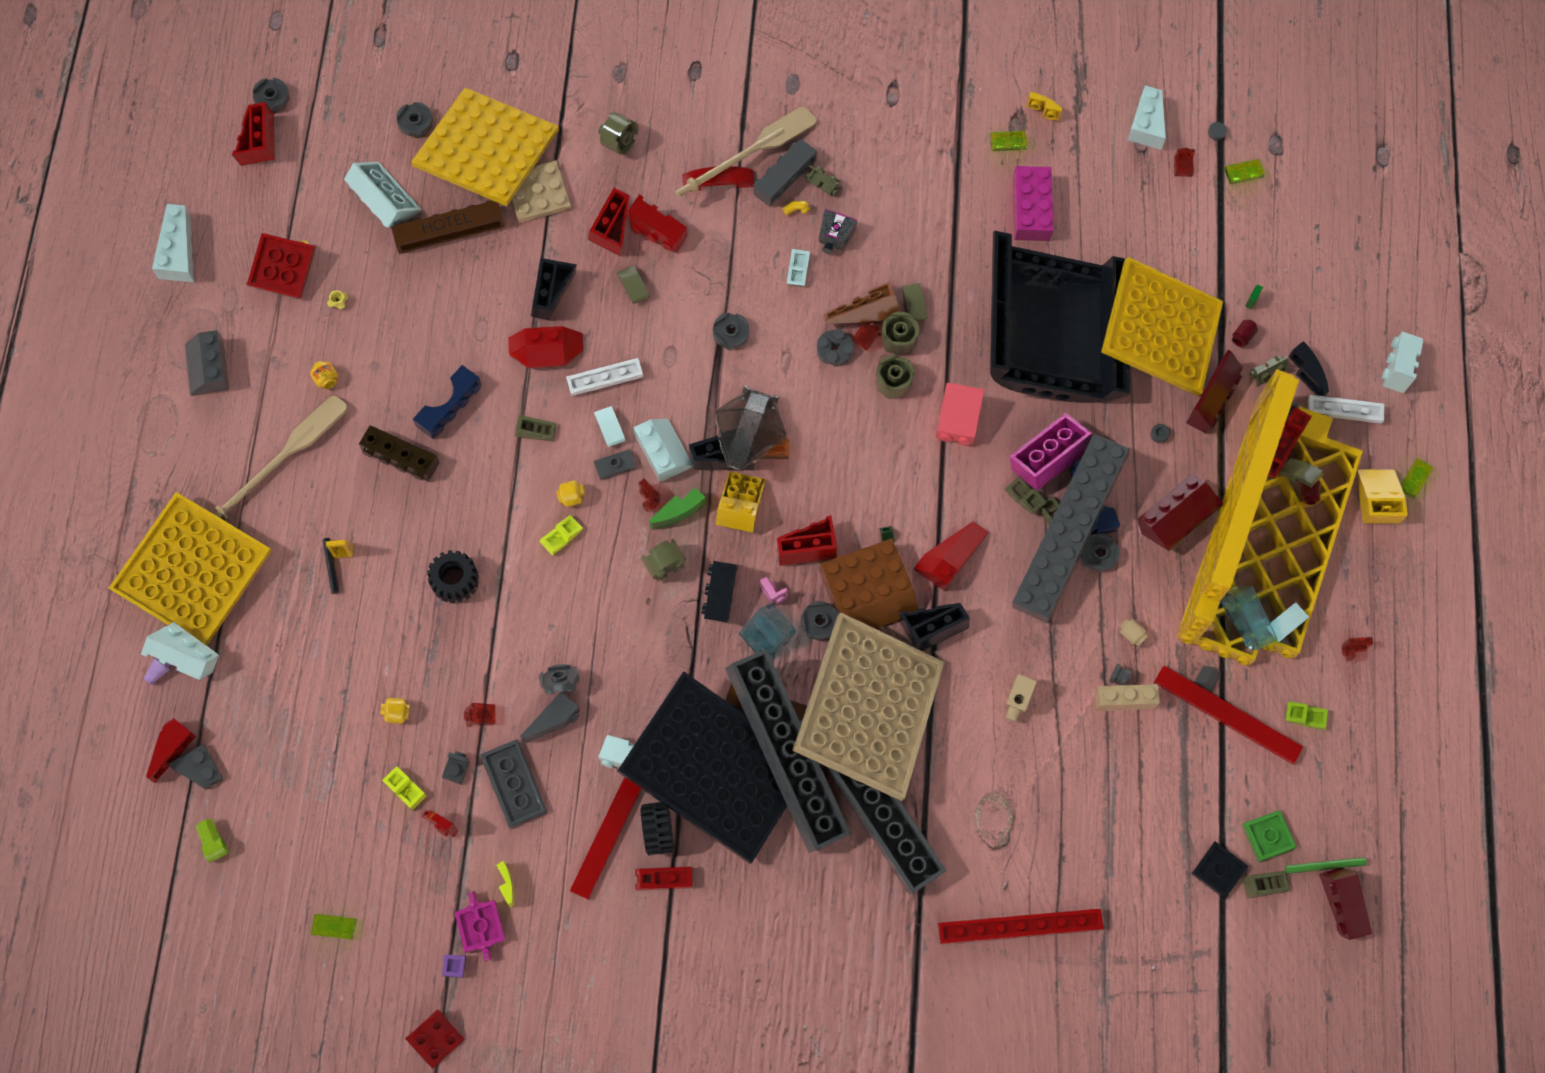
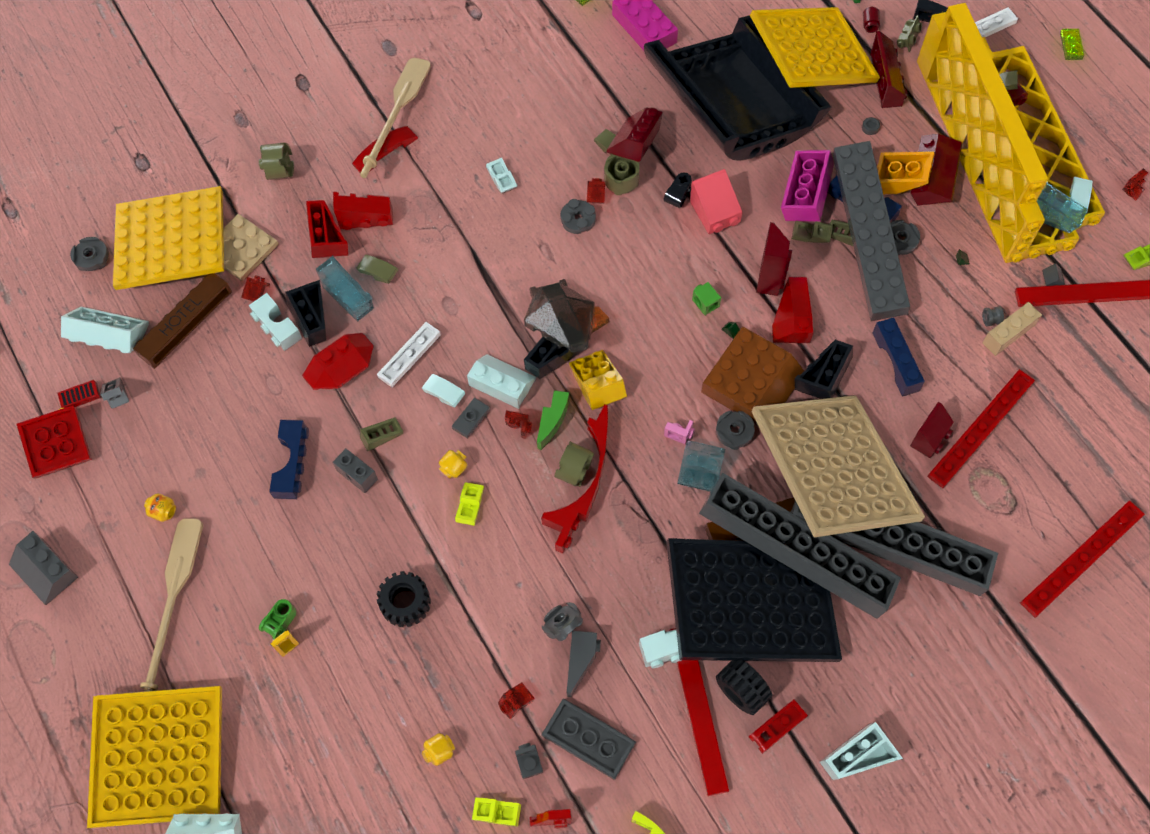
camera: 30 degrees left, 5 degrees down
(326, 238) = (79, 394): none -> red tile
(331, 568) = (292, 672): black bar -> none
(334, 295) = (122, 435): light yellow plate -> none
(348, 526) = (276, 620): none -> bright green piece
(353, 254) = (114, 393): none -> dark grey slope
(399, 453) = (277, 528): dark brown brick -> none
(491, 446) = (355, 470): none -> dark grey brick
(517, 291) = (284, 332): none -> light aqua arch
(522, 237) = (254, 288): none -> clear red bracket
(592, 286) = (344, 289): none -> clear light blue wedge
(628, 600) = (567, 518): none -> red slope
(709, 944) = (861, 752): none -> light aqua wedge
(719, 591) = (639, 458): black wedge -> none
(731, 321) = (482, 263): dark grey plate -> none
(784, 172) = (435, 112): dark grey brick -> none
(795, 205) = (468, 128): yellow arm -> none
(808, 544) = (680, 374): red wedge -> none
(830, 183) = (476, 98): olive hinge -> none
(836, 230) = (509, 130): dark grey torso -> none
(873, 307) = (585, 164): dark orange wedge -> none
(885, 493) = (706, 298): none -> bright green brick
(894, 376) = (643, 207): olive brick -> none
(936, 383) = (679, 190): none -> black piece
(937, 307) = (636, 134): none -> dark red slope
(956, 500) = (774, 262): none -> dark red slope
(981, 736) = (933, 431): none -> dark red slope
(1006, 654) = (907, 374): none -> dark blue arch
(1023, 689) = (936, 380): tan torso -> none
(1028, 762) = (980, 429): none -> red plate
(1133, 632) = (975, 278): tan brick -> none
(1140, 607) = (962, 258): none -> piece
(1144, 494) = (904, 170): none -> light orange slope
(1381, 497) = (1063, 70): yellow slope -> none

